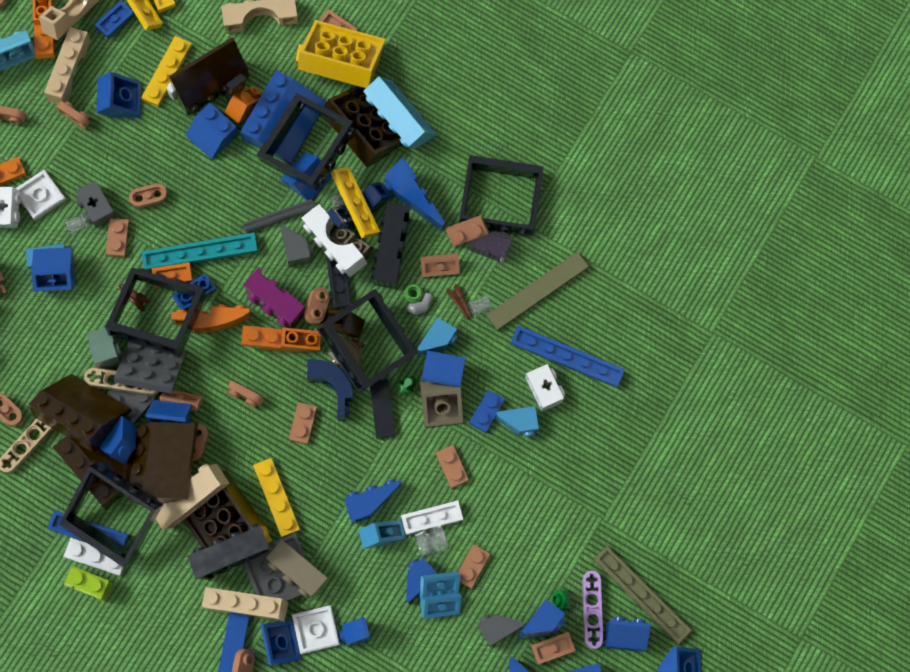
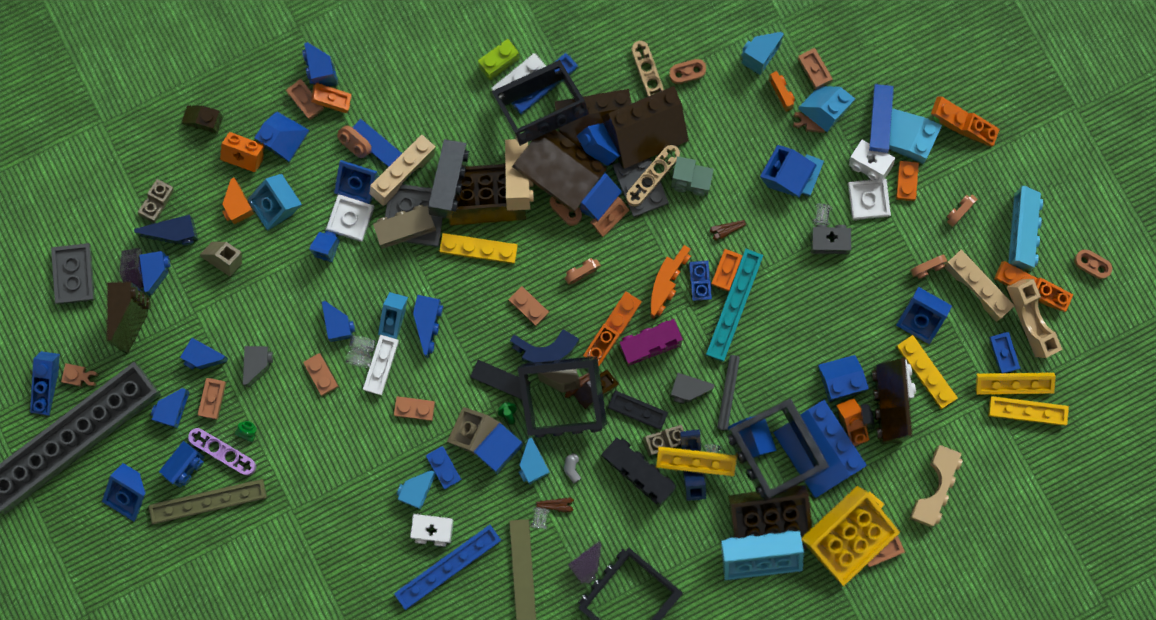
camera: 130 degrees right, 5 degrees up
(117, 238) = (789, 243): nougat plate -> none
(147, 339) = (668, 254): black window -> none
(148, 195) = (813, 290): nougat plate -> none
(149, 368) = (652, 205): dark grey plate -> none
(316, 304) = (626, 375): nougat plate -> none
(346, 256) = (648, 424): white arch -> none
(403, 185) = (686, 518): blue wedge -> none
(413, 288) = (586, 461): bright green plate -> none
(440, 265) = (597, 505): nougat plate -> none
(440, 595) = (311, 331): dark azure slope -> none
(467, 230) = (613, 548): nougat plate -> none
(544, 621) = (232, 397): blue slope -> none

